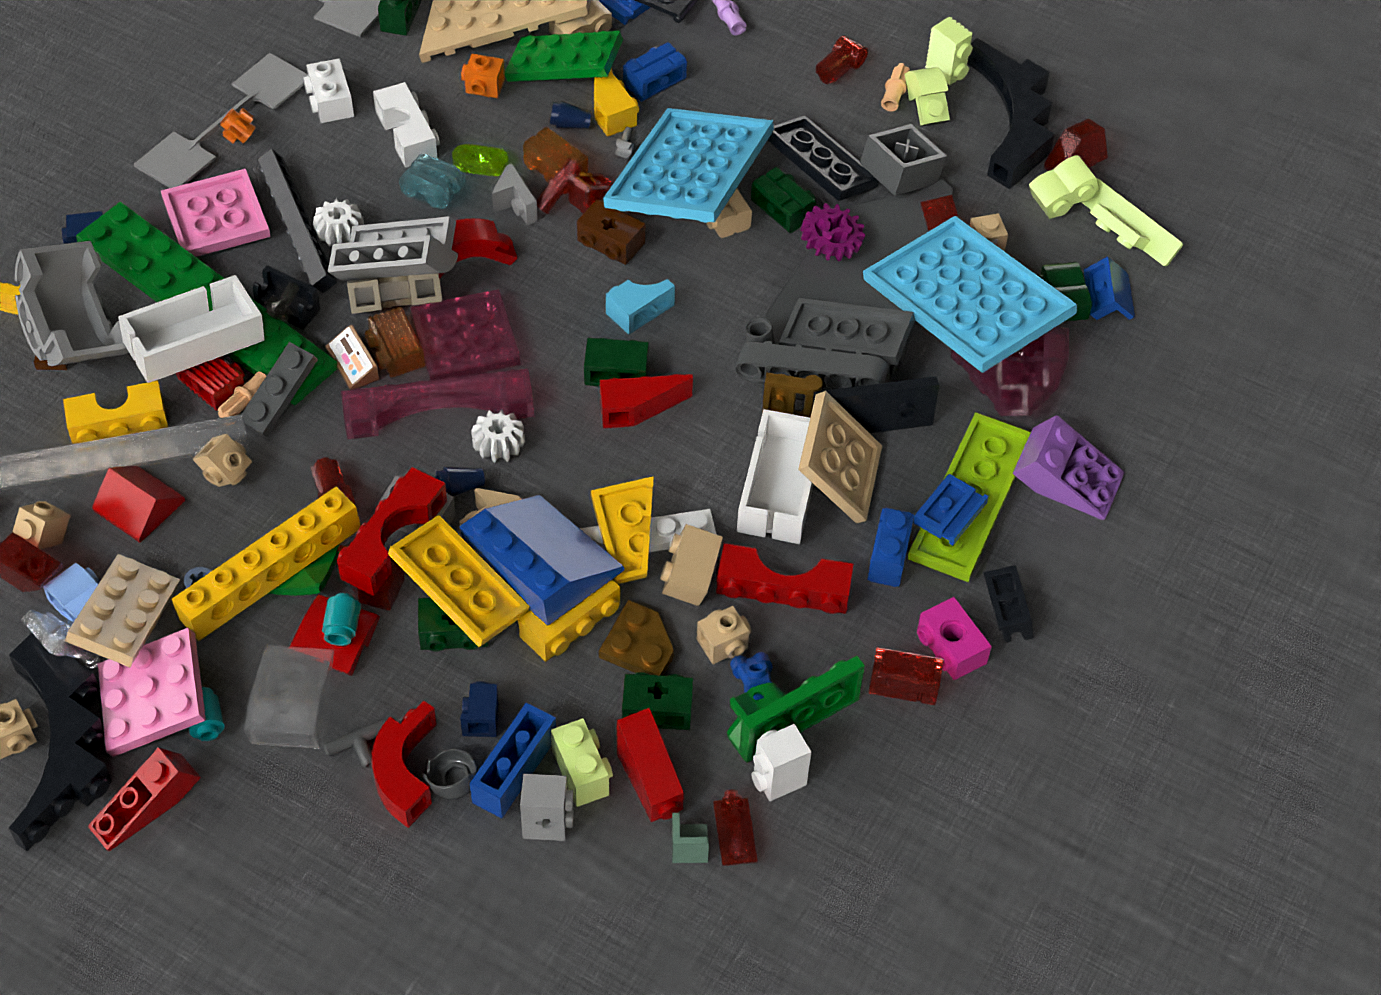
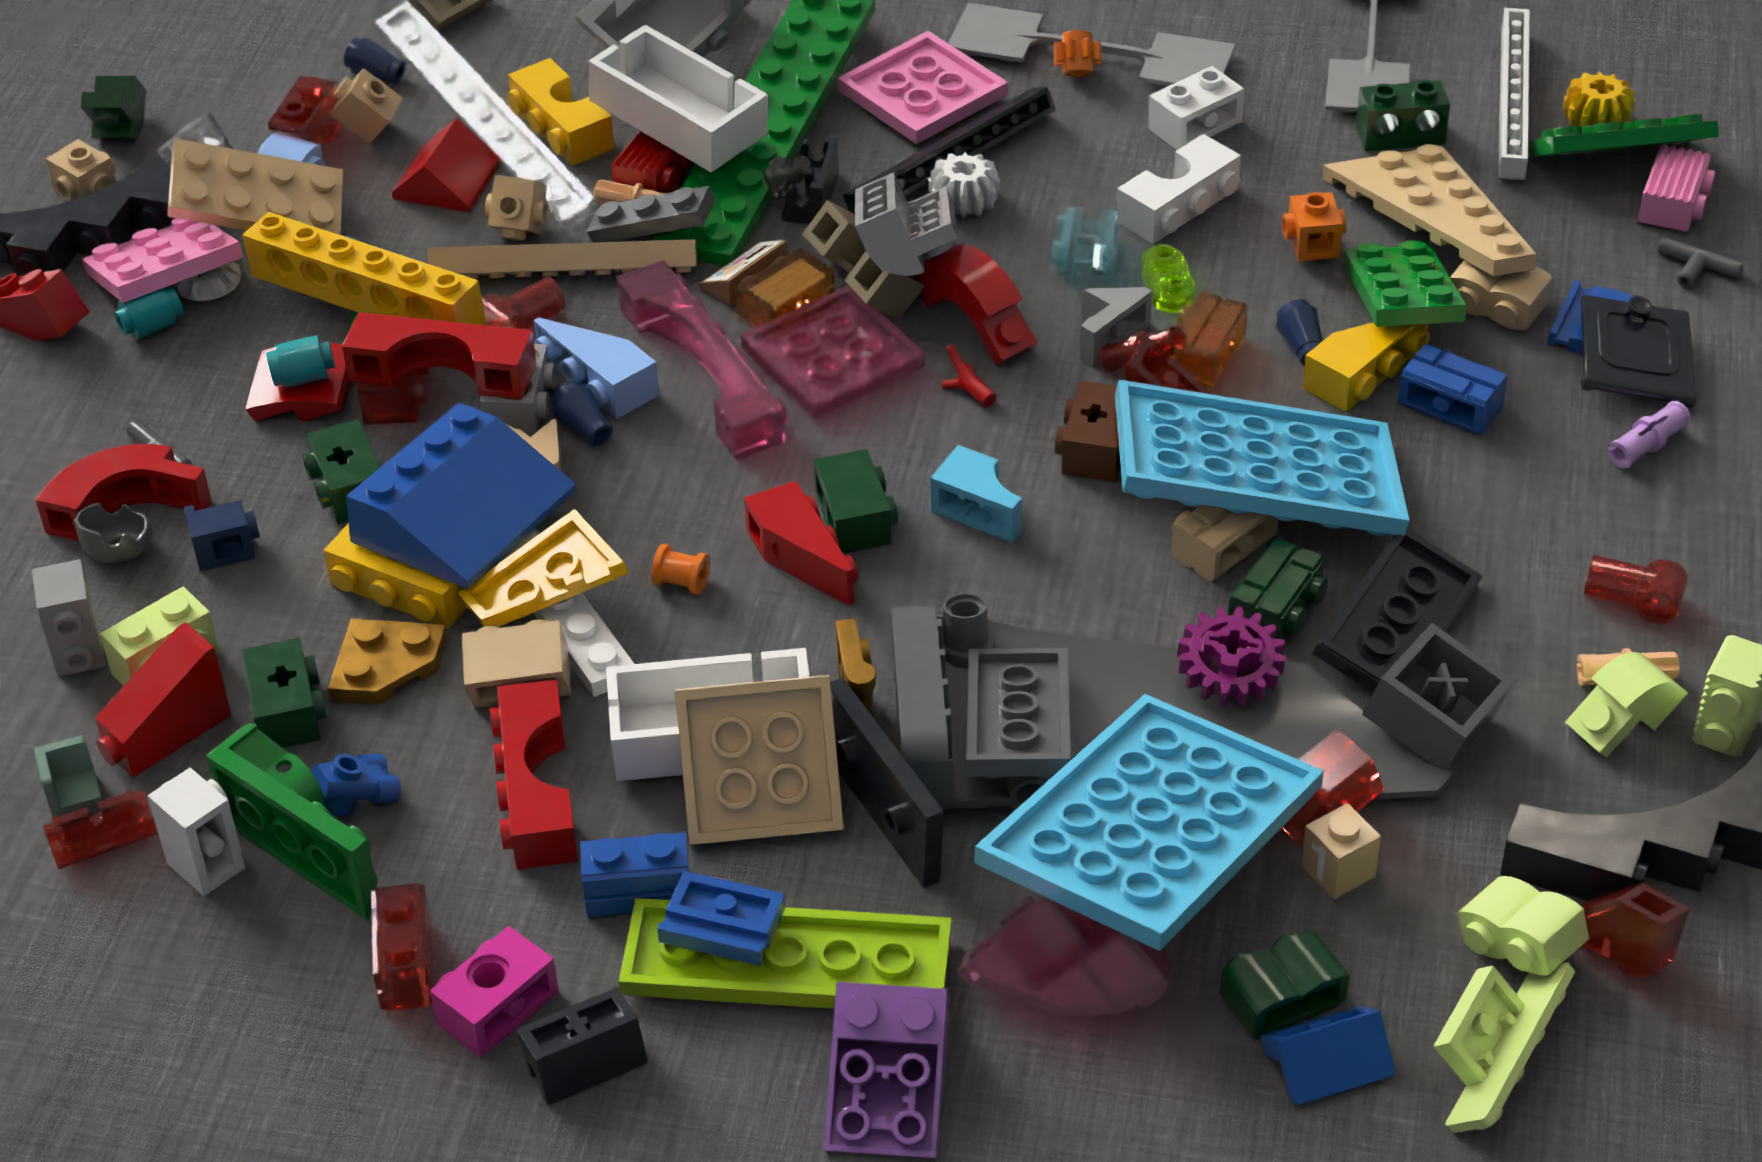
camera: 75 degrees right, 10 degrees down
(285, 454) = (563, 257): none -> tan piece
(289, 697) = (187, 365): clear slope -> none
(425, 449) = (610, 366): none -> light blue slope
(458, 580) = (374, 420): yellow plate -> none
(498, 435) = (669, 425): white gear -> none
(515, 754) = (137, 572): blue brick -> none
(527, 279) = (968, 380): none -> red bar
(624, 148) = (1283, 397): light grey hand -> none
(635, 463) = (680, 569): none -> orange bush
(723, 634) = (407, 726): tan brick -> none

